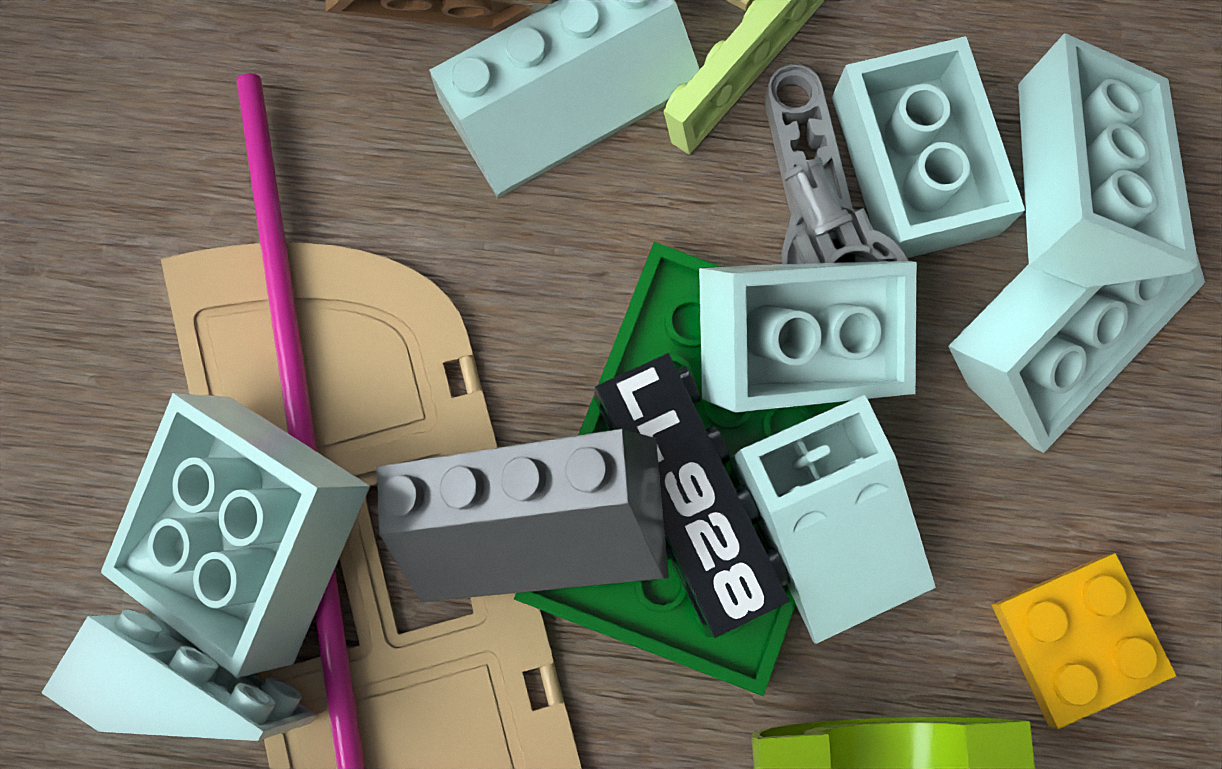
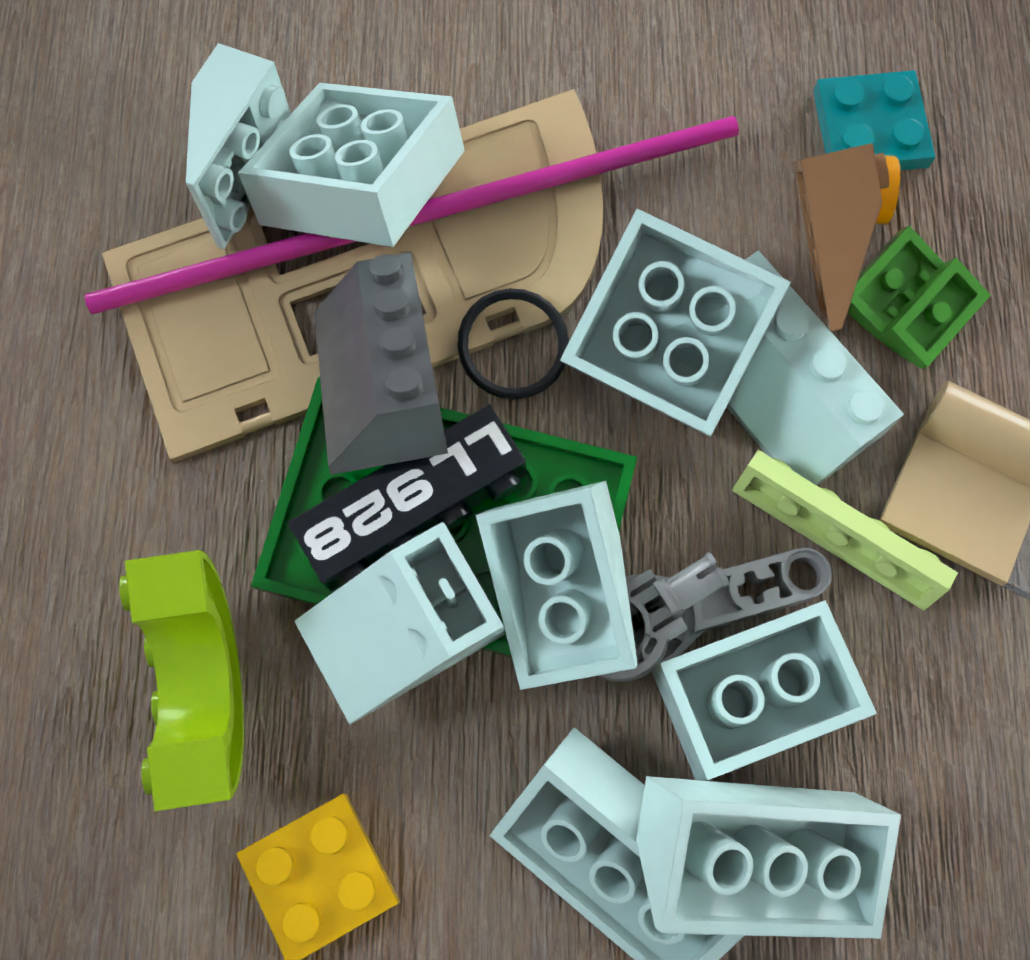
camera: 85 degrees right, 5 degrees down
(455, 412) = (475, 375): none -> black tyre
(511, 173) = (674, 322): none -> light aqua slope

